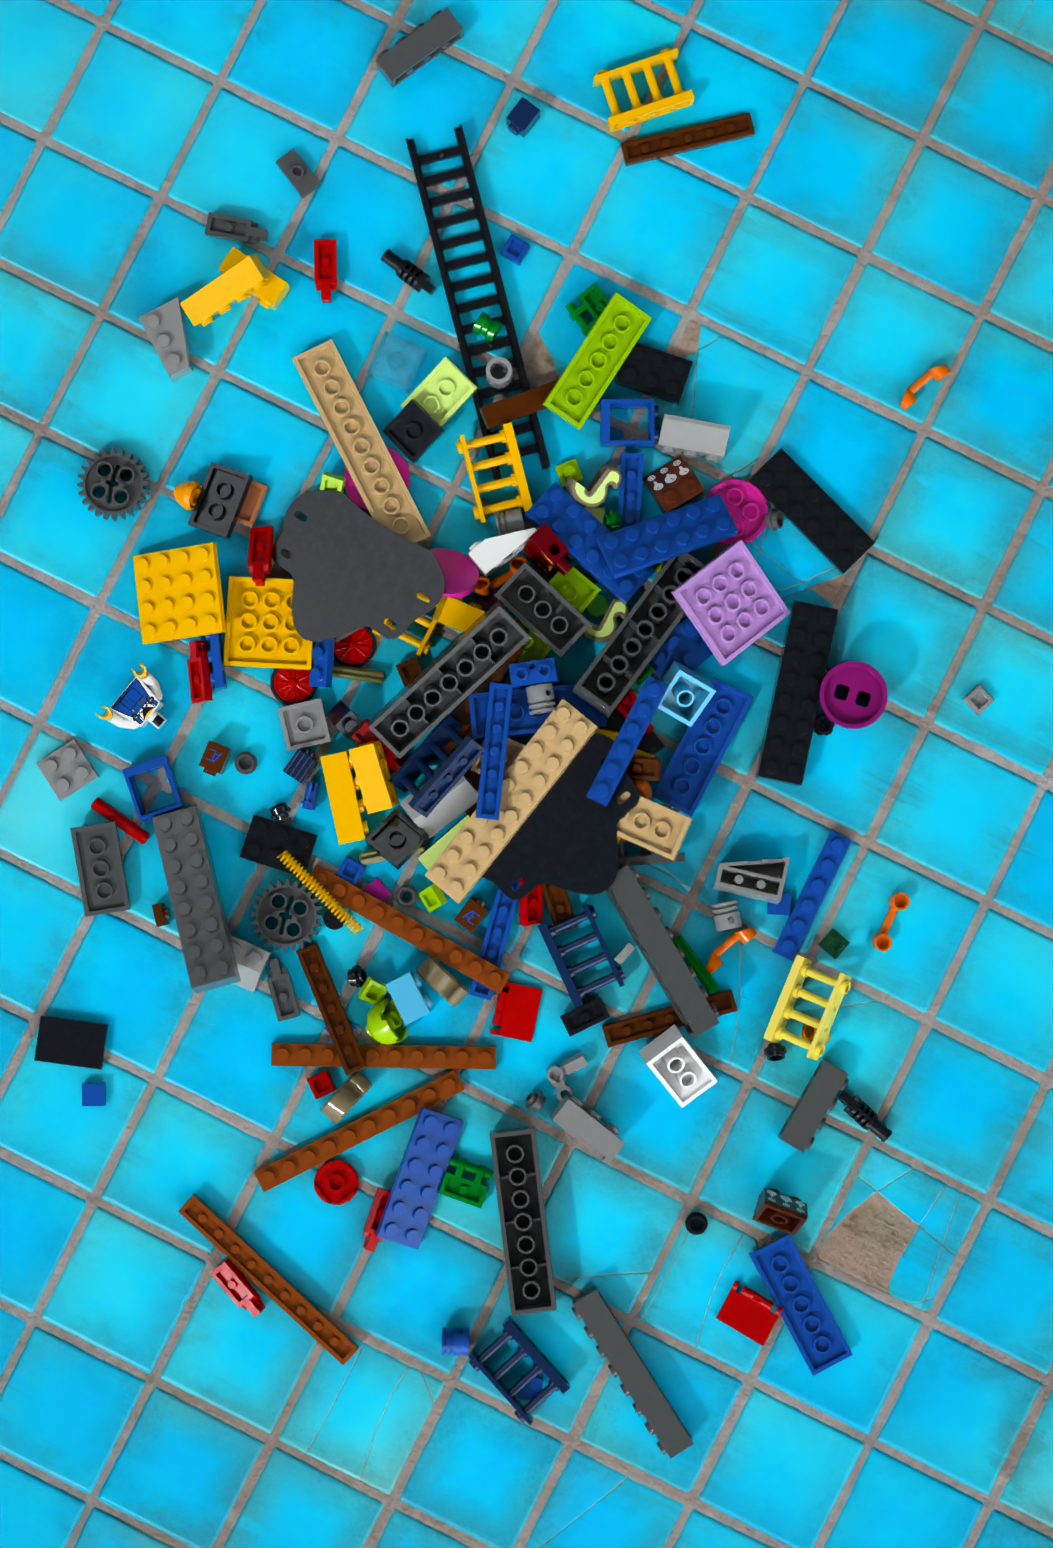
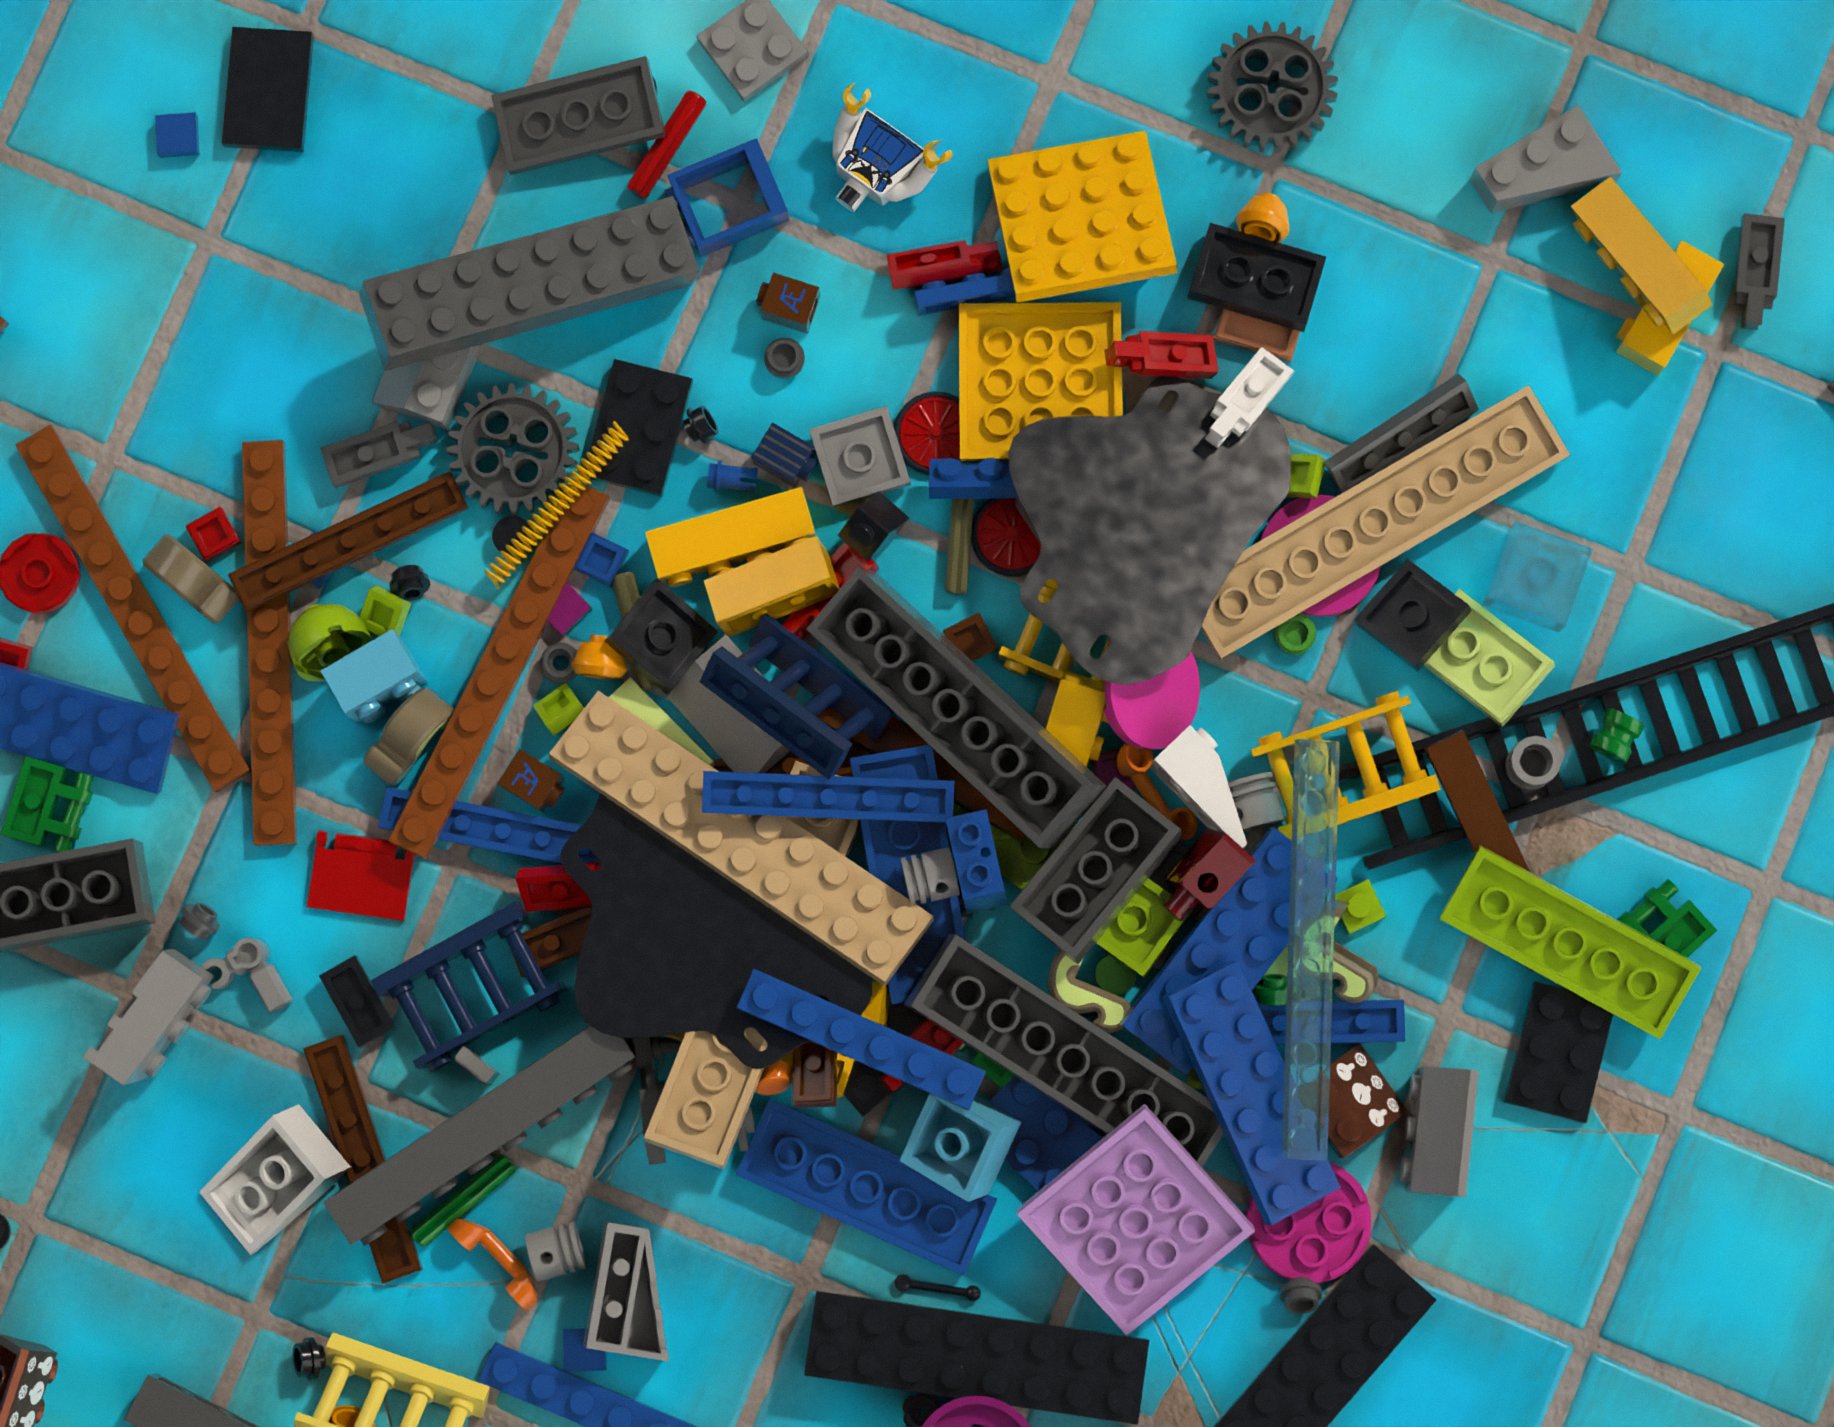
camera: 90 degrees right, 5 degrees down
(161, 914) = (502, 227): reddish brown plate -> none
(286, 510) = (1248, 396): none -> white hinge
(313, 429) = (1402, 434): none -> dark grey plate
(325, 268) = (1700, 435): red hinge -> none
(407, 874) = (598, 660): none -> light orange cone
(408, 272) = (1706, 587): black hinge -> none
(420, 495) = (1295, 635): none -> bright green tile
(515, 249) = (1767, 779): blue tile -> none
(593, 497) = (1310, 950): none -> clear light blue plate
(653, 413) = (1455, 966): blue window -> none
(754, 730) = (971, 1293): none -> black hinge

